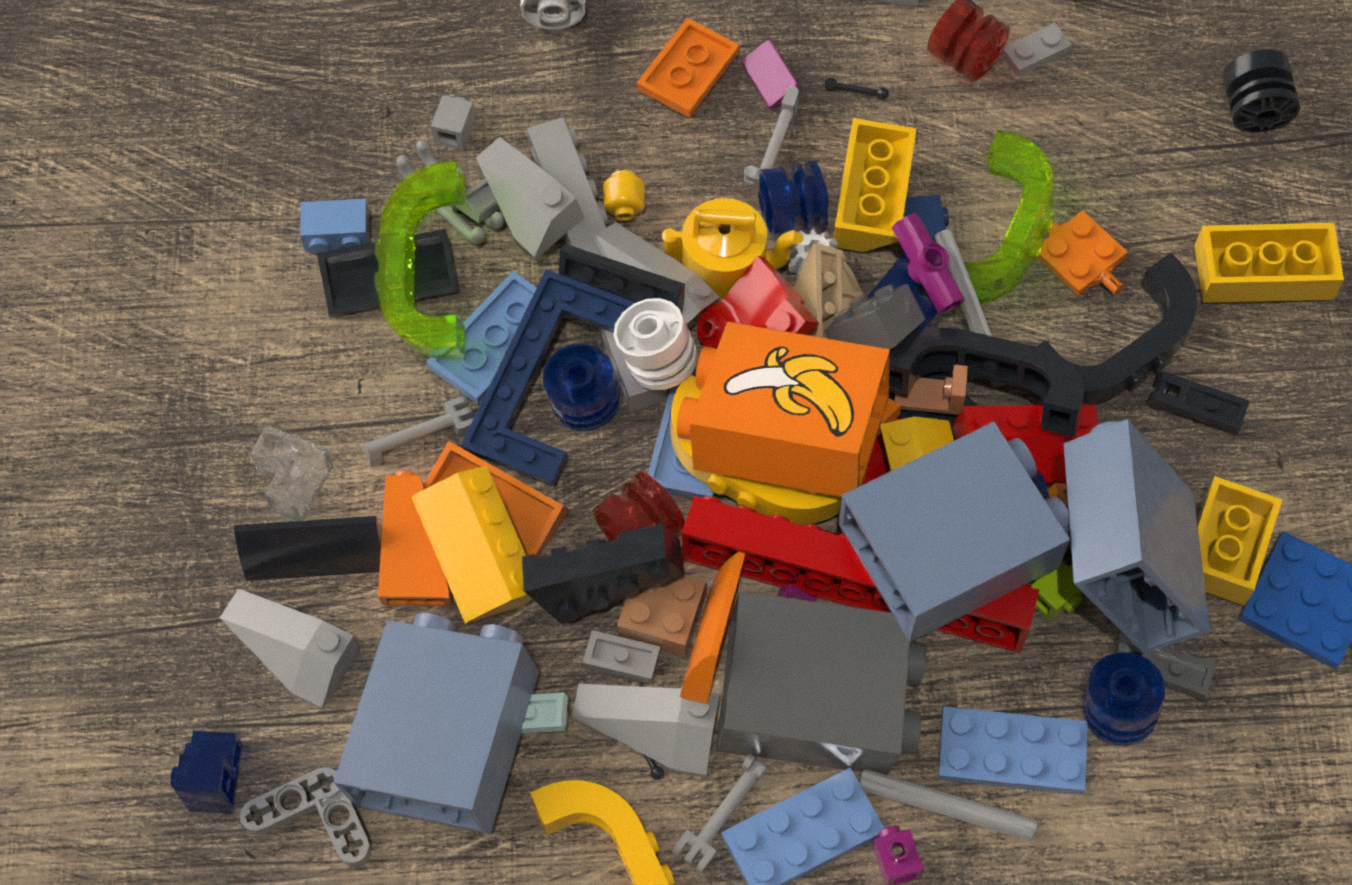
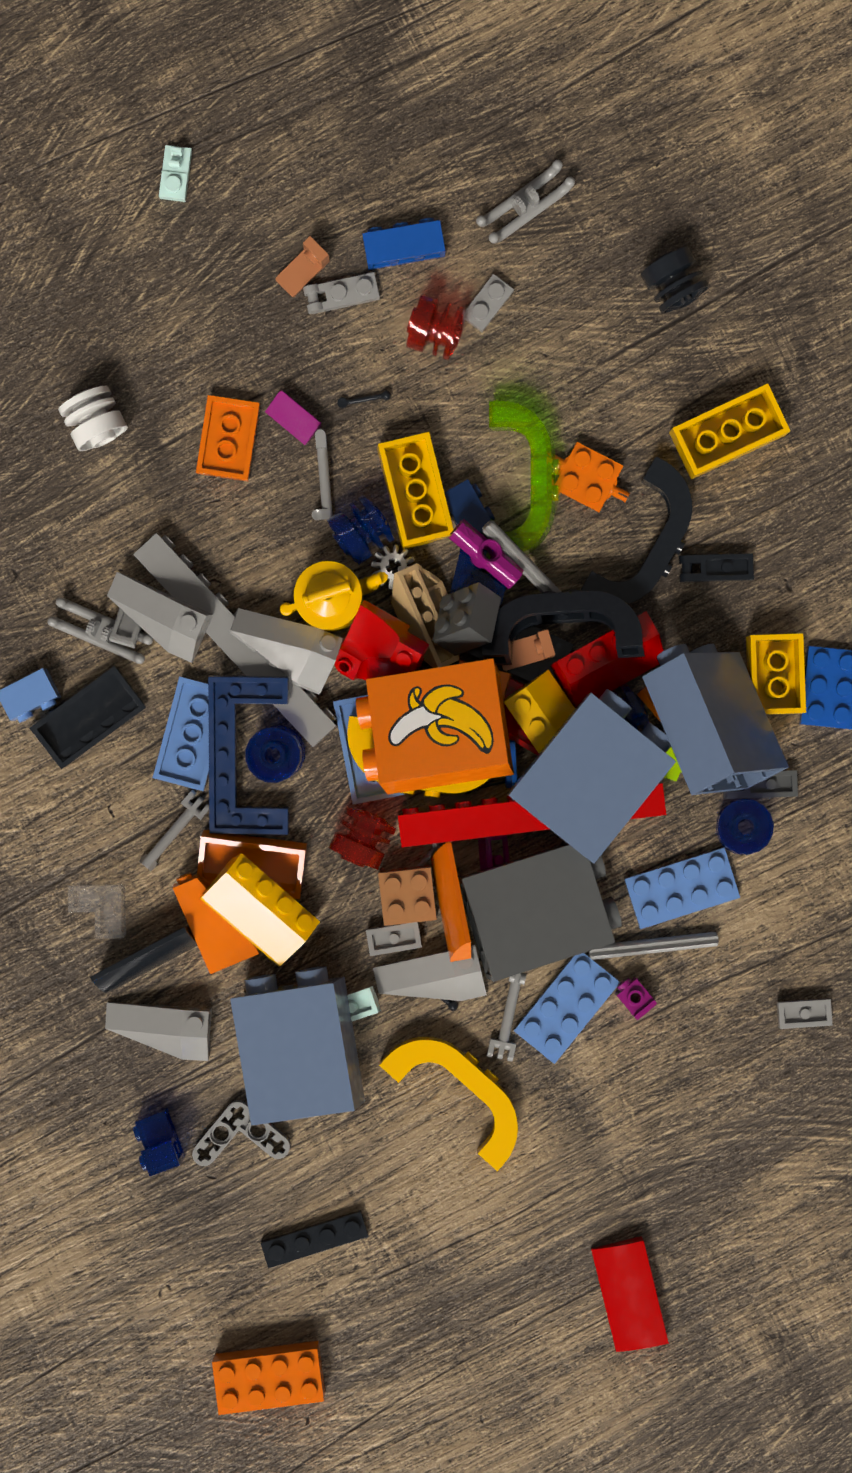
camera: 30 degrees left, 25 degrees up
(407, 205) = (96, 718): clear neon green arch -> none
(453, 122) = (72, 566): light grey brick -> none
(602, 572) = (359, 897): black wedge -> none
(618, 277) = (268, 665): black plate -> none
(624, 195) = (231, 576): yellow head -> none
(656, 344) = (318, 709): white wheel -> none

